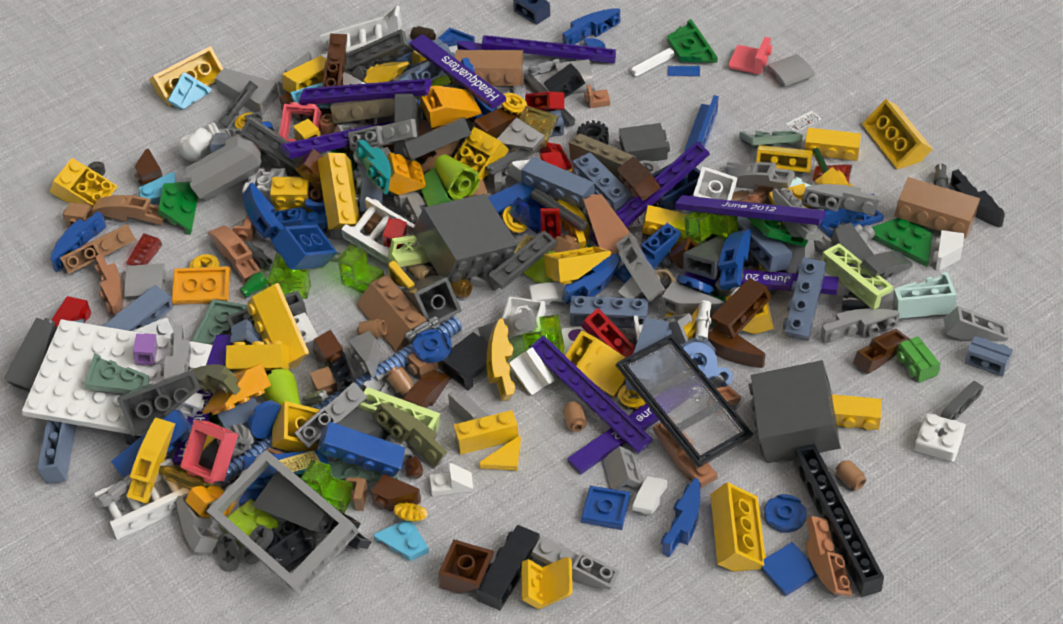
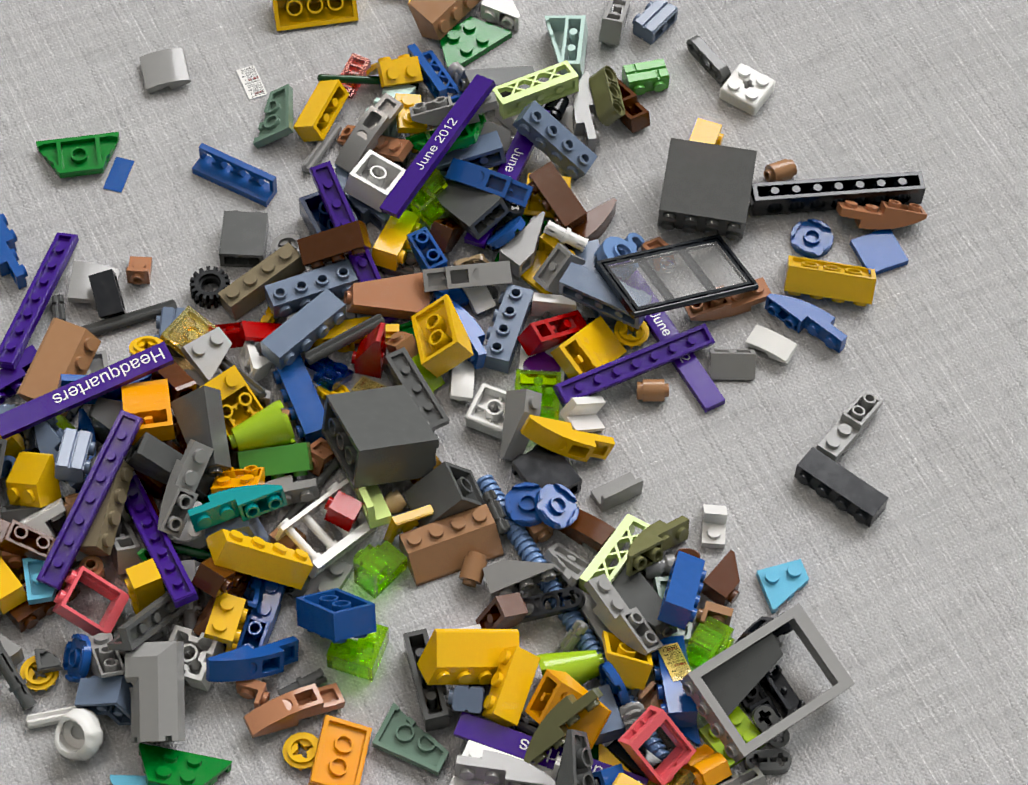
camera: 85 degrees left, 10 degrees up
(254, 284) = (355, 693): green cone -> none
(324, 380) = (545, 631): medium nougat brick -> none
(400, 380) = (570, 545): medium nougat brick -> none
(401, 73) = (74, 455): none -> brick
(410, 511) = (751, 574): yellow gear -> none
(430, 361) = (556, 506): none -> tile
(464, 567) = (842, 523): reddish brown slope -> none
(486, 432) = (657, 476): yellow brick -> none
(504, 458) = (689, 467): yellow tile -> none
(545, 100) = (144, 317): red brick -> none
(546, 584) = (871, 450): yellow bracket -> none
(593, 42) = (34, 254): blue tile -> none
(606, 507) = (774, 388): blue tile -> none
(652, 62) = (95, 200): white axle -> none
(751, 59) = (131, 99): coral bracket -> none
(834, 143) = (308, 62): yellow brick -> none
(840, 196) = (428, 66): light grey slope -> none
(883, 328) = (607, 95): none -> olive beam
(886, 263) = (522, 59): dark grey slope -> none

